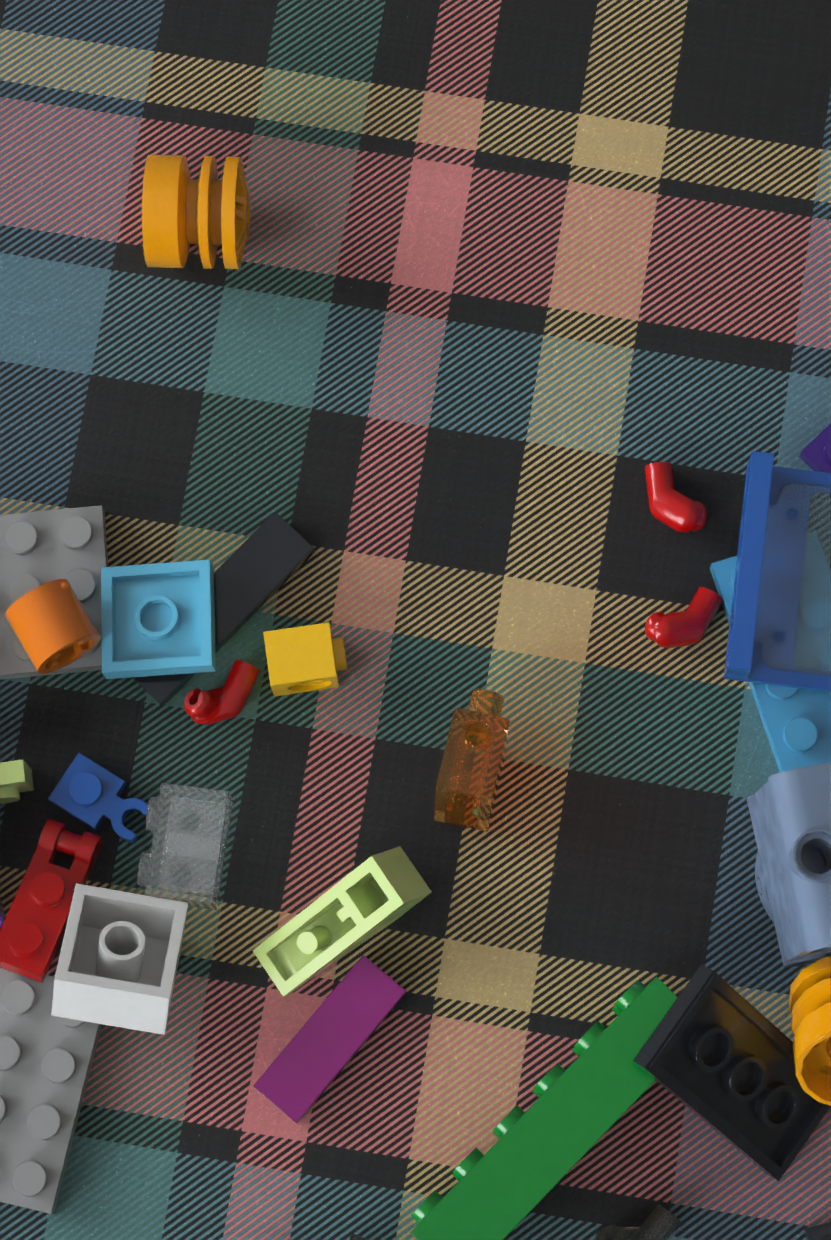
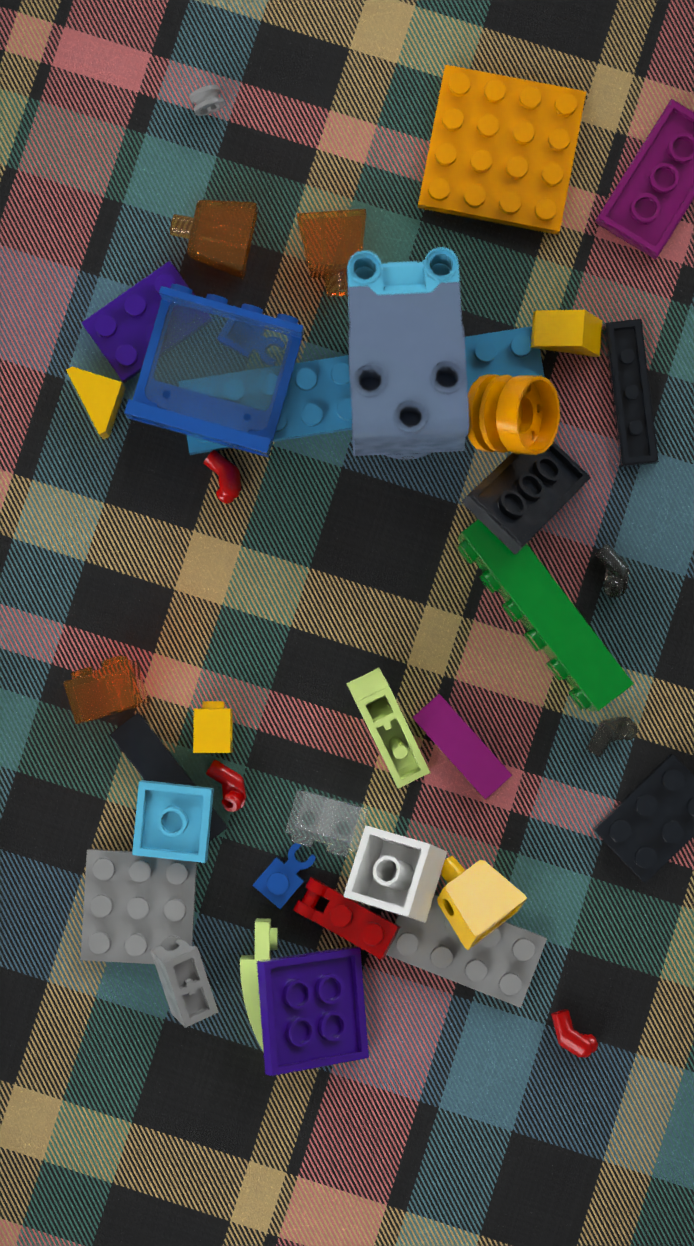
camera: 85 degrees left, 10 degrees up
(52, 626) = (169, 891): orange piece -> none
(96, 1092) = (477, 900): none -> yellow torso
(339, 497) = (106, 690): none -> clear orange brick
(472, 762) = (310, 632): clear orange torso -> none
(670, 505) = (145, 473): red arm -> none
(768, 421) = (100, 397): none -> yellow slope

